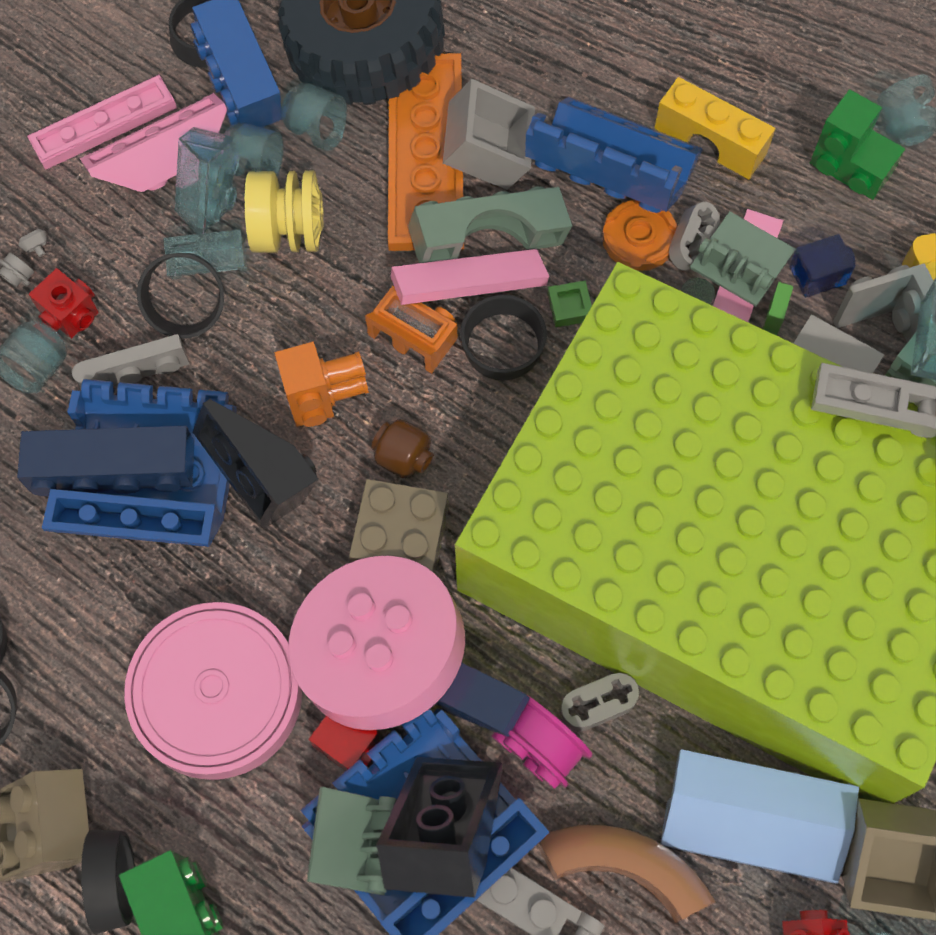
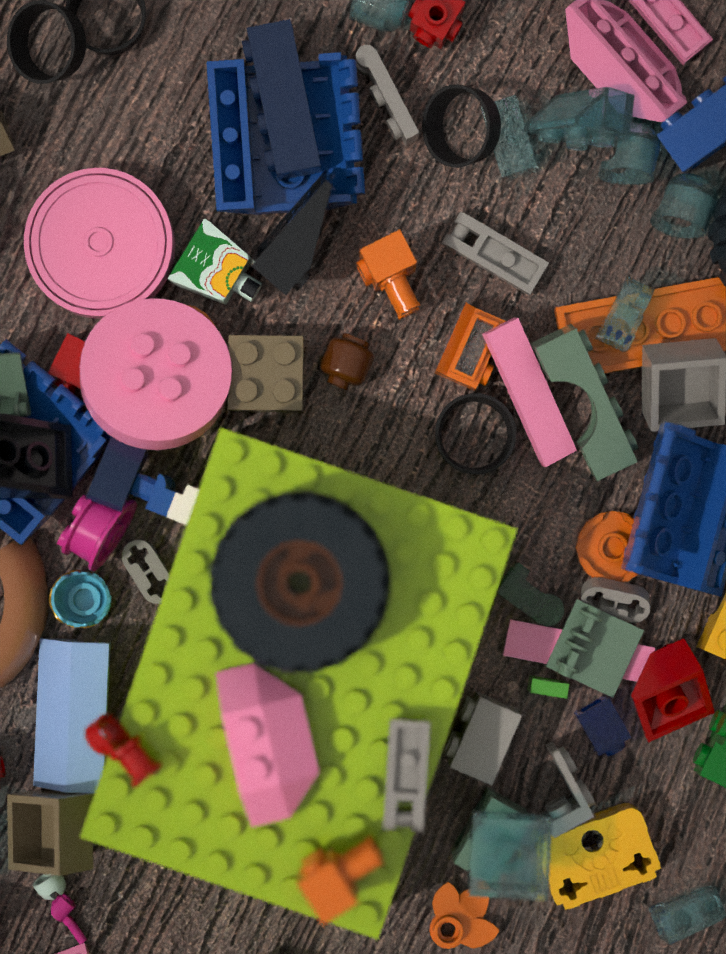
camera: 80 degrees right, 20 degrees up
(270, 568) = (214, 267): none -> torso
(281, 212) = (564, 199): light yellow wheel -> none
(320, 292) = (496, 254): none -> light grey plate
(409, 175) = (625, 315): none -> clear light blue leg
(530, 646) = (164, 498): none -> blue hips
(569, 303) = (525, 491): bright green tile -> none
(622, 782) = (80, 599): none -> medium azure hair
(649, 467) = (293, 627): none -> black wheel
(791, 194) = (671, 691): none -> red slope
(810, 721) = (121, 748): none -> red connector
(827, 541) = (266, 742): none -> bright pink wedge

